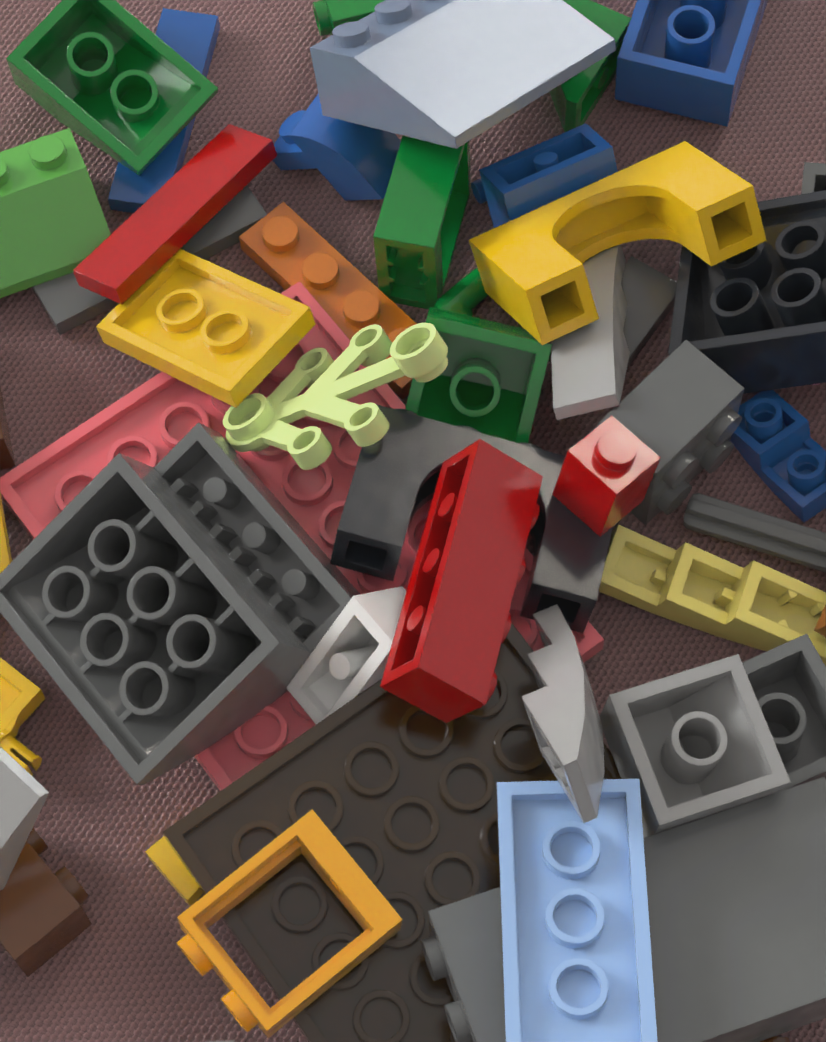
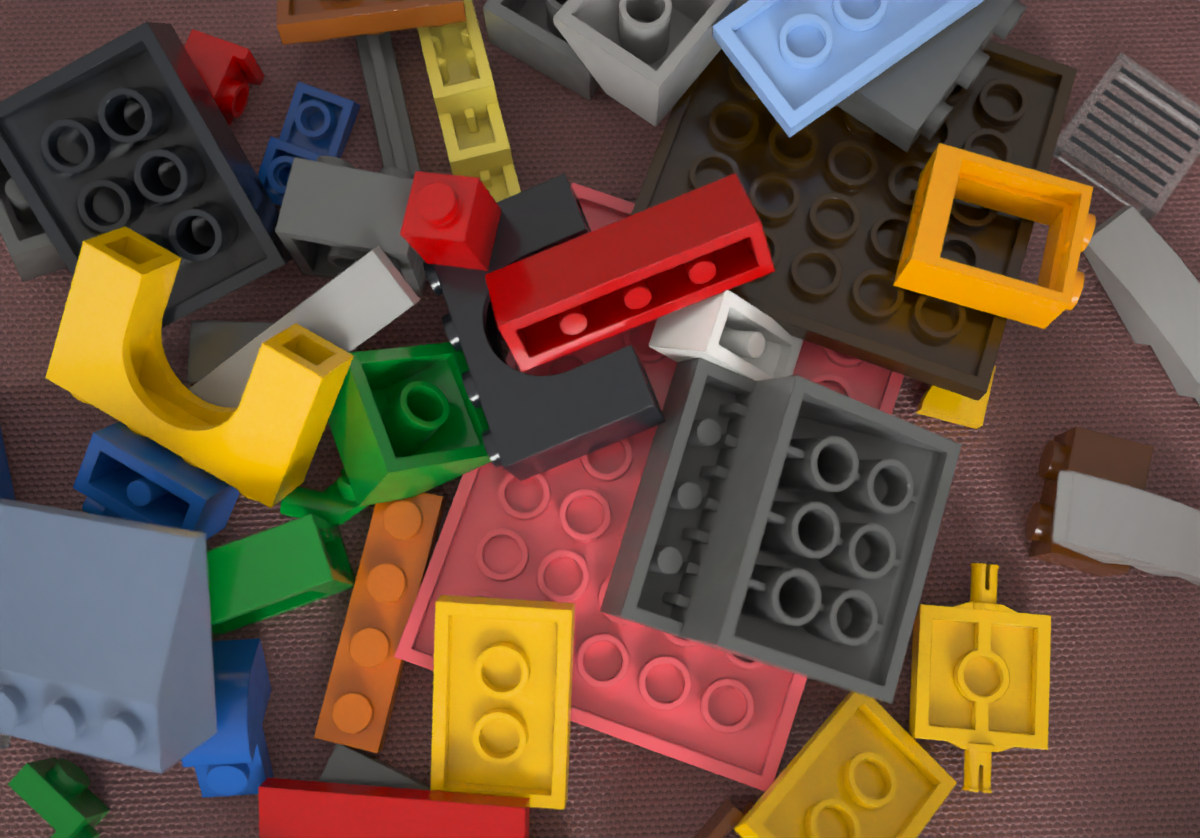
camera: 130 degrees left, 15 degrees up
(265, 421) = (512, 524): yellowish green plant -> none
(566, 714) = (702, 106): light grey slope -> none

